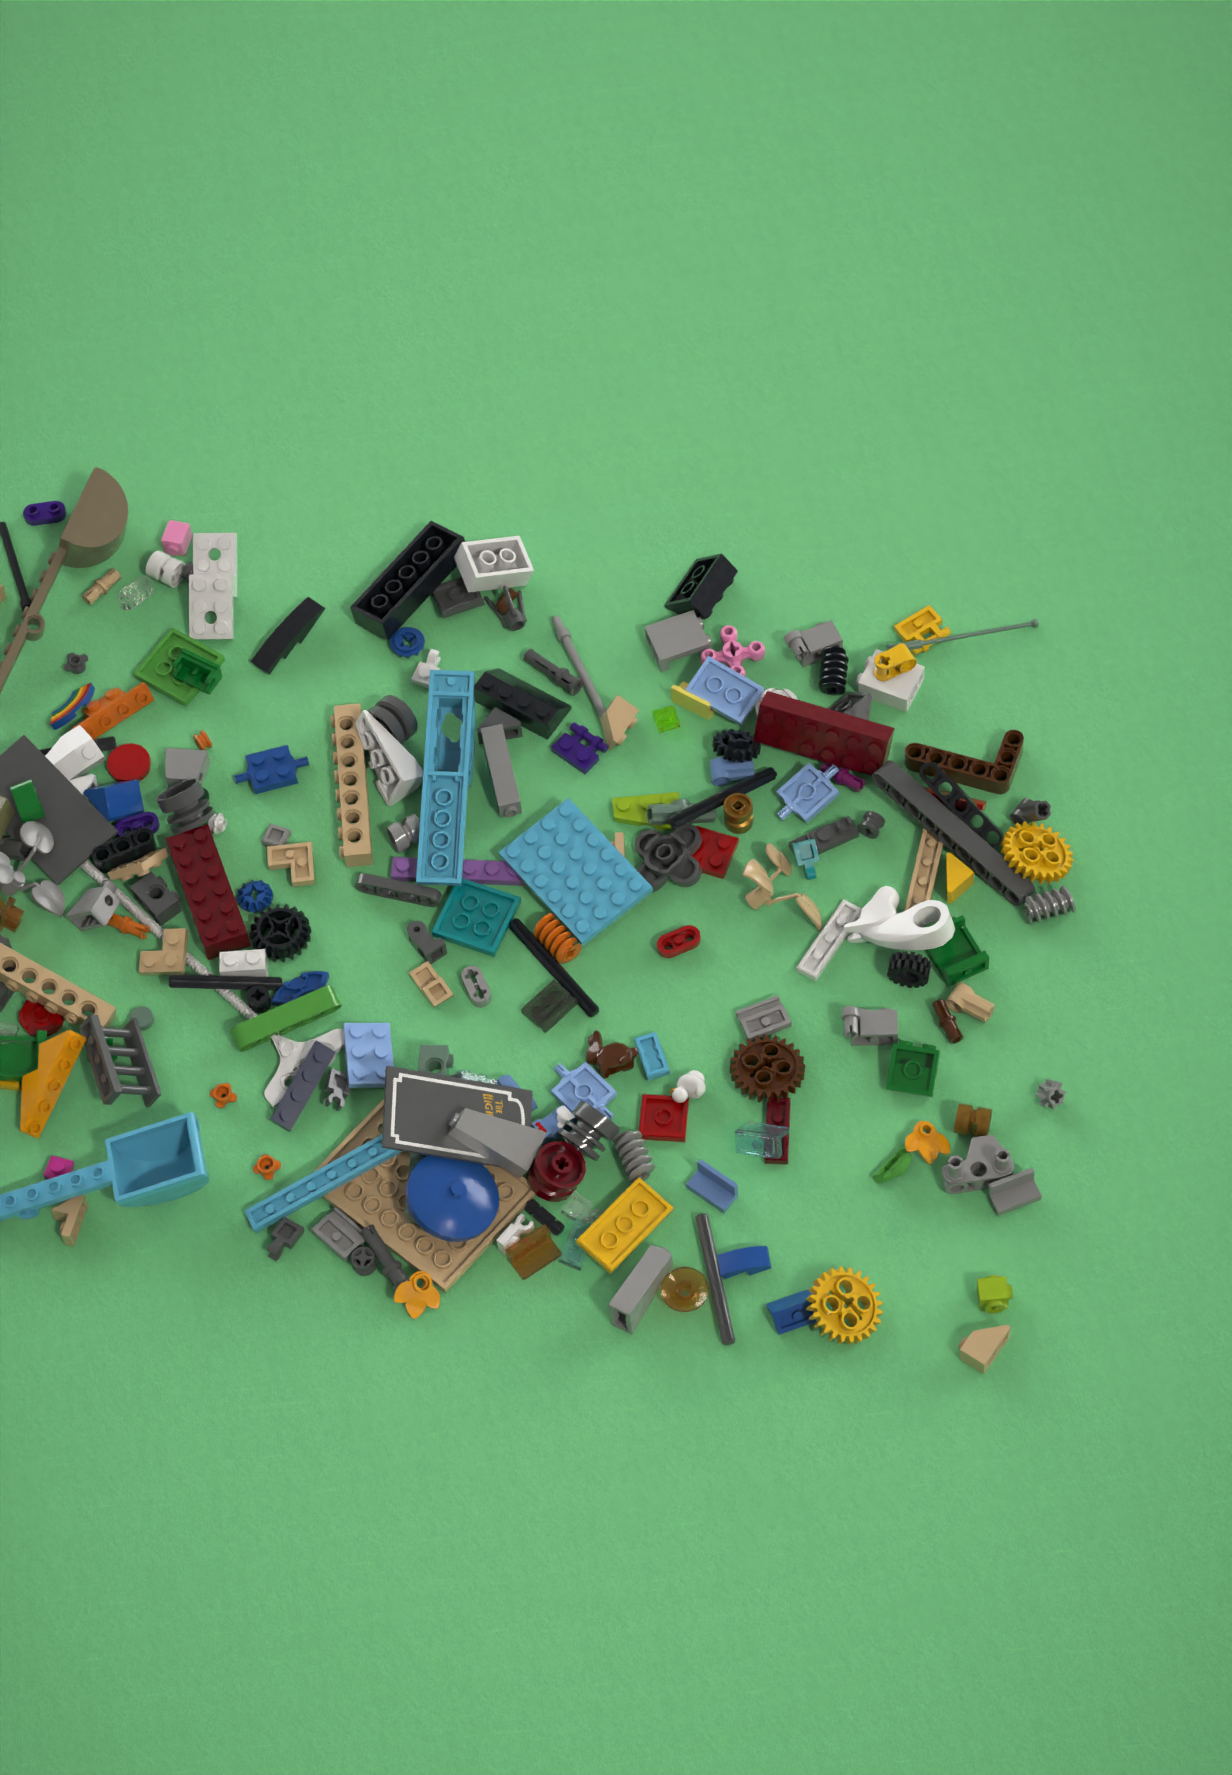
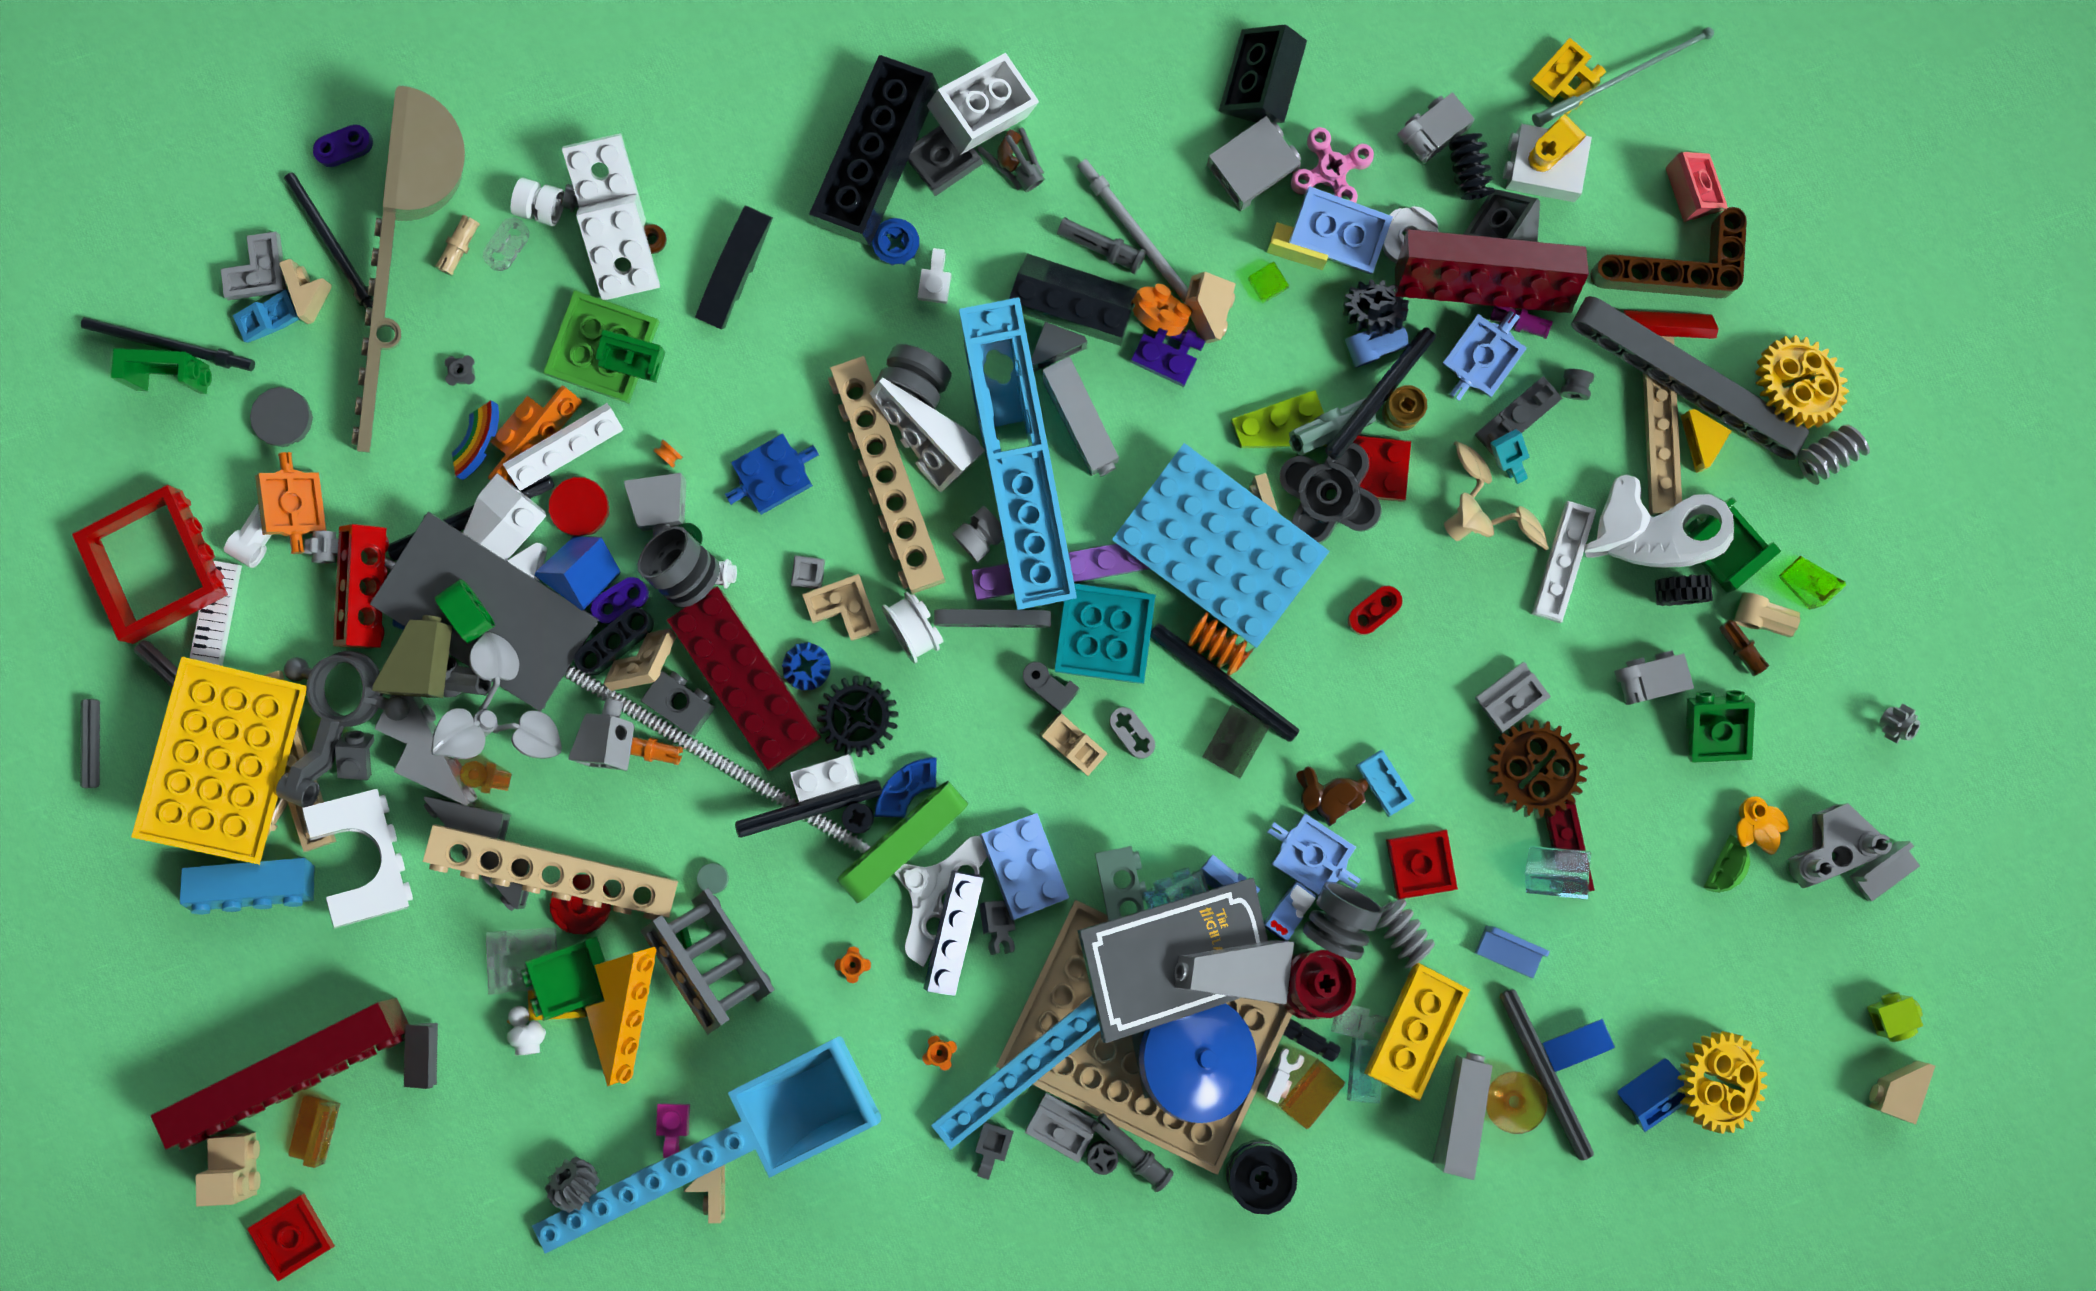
camera: 20 degrees left, 25 degrees up
(131, 720) = (563, 446): none -> white plate
(169, 959) = (725, 787): tan plate -> none
(176, 538) = (537, 149): bright pink brick -> none
(239, 604) = (655, 230): none -> reddish brown plate
(337, 878) = (911, 626): none -> white wheel
(417, 1298) = (1184, 1189): light orange plate -> none
(476, 1296) = (1274, 1190): none -> black wheel
(581, 715) = (1160, 309): none -> orange plate
(690, 1086) = (1445, 816): white animal -> none
(951, 800) = (1689, 326): black beam -> none
(972, 1120) = (1820, 784): pearl gold wheel -> none
(997, 713) = (1695, 185): none -> coral slope
(1010, 990) = (1811, 583): none -> clear neon green slope
(1030, 811) = (1775, 323): dark grey piece -> none

